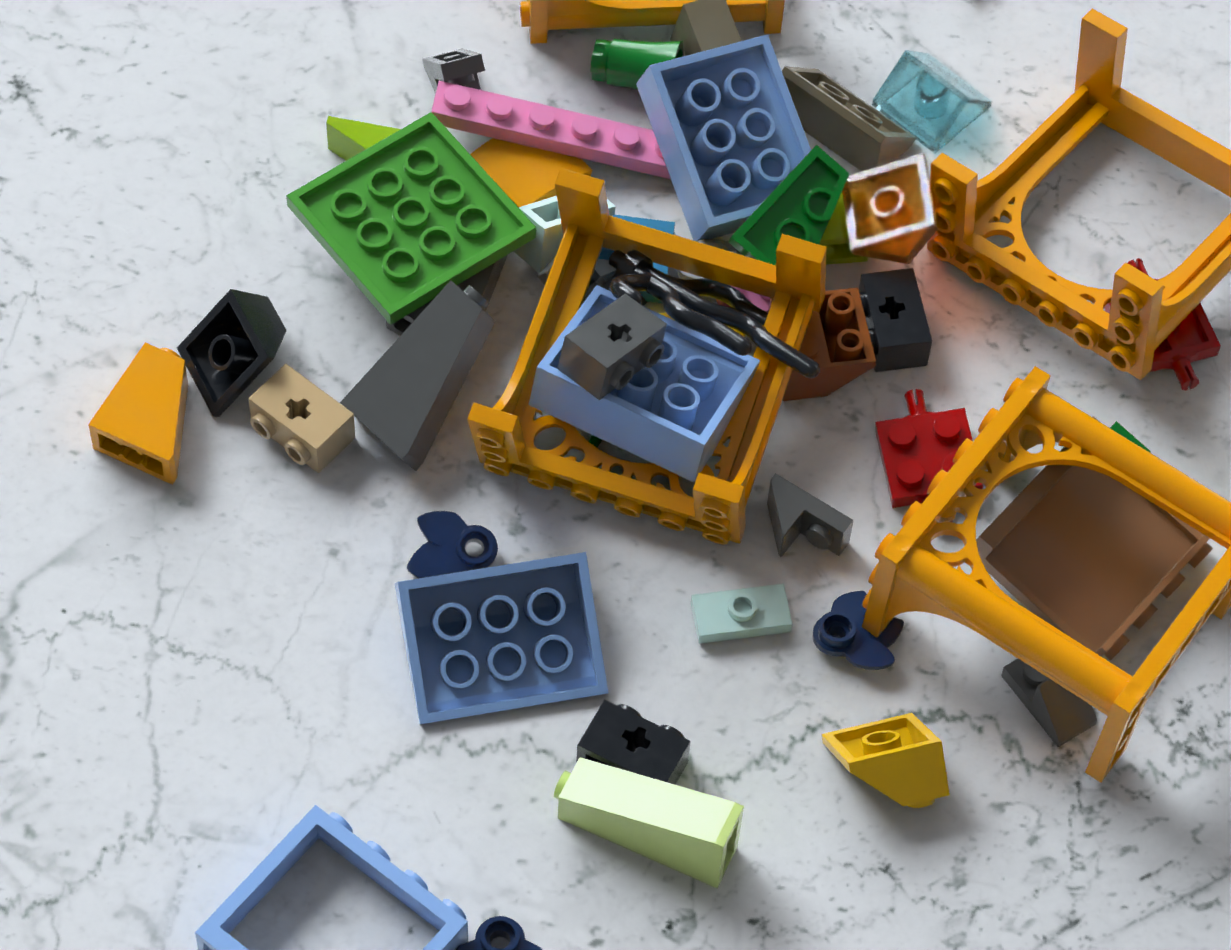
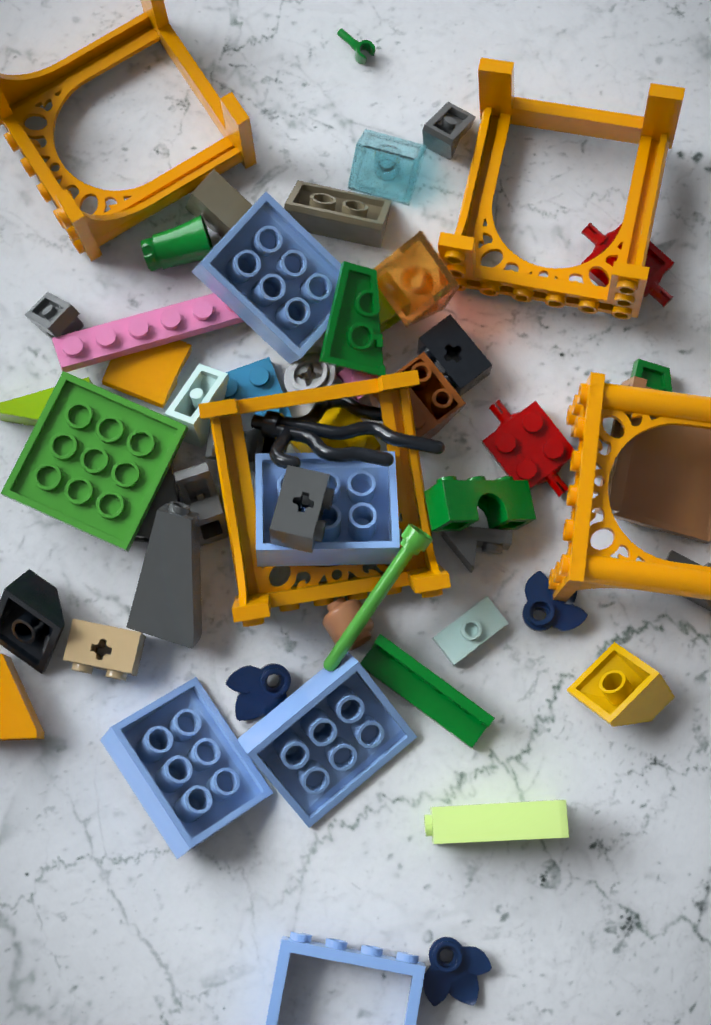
camera: 25 degrees left, 20 degrees up
(316, 583) = (185, 766): none -> light blue slope
(511, 307) = (202, 496): none -> dark grey brick
(599, 528) = (339, 617): none -> nougat head
(620, 729) = (479, 784): black brick -> none
(651, 645) = (426, 691): none -> green fence
(721, 449) = (413, 542): none -> bright green piece
(859, 484) = (504, 501): none -> green arch
(1019, 89) = (446, 129): none -> dark grey slope

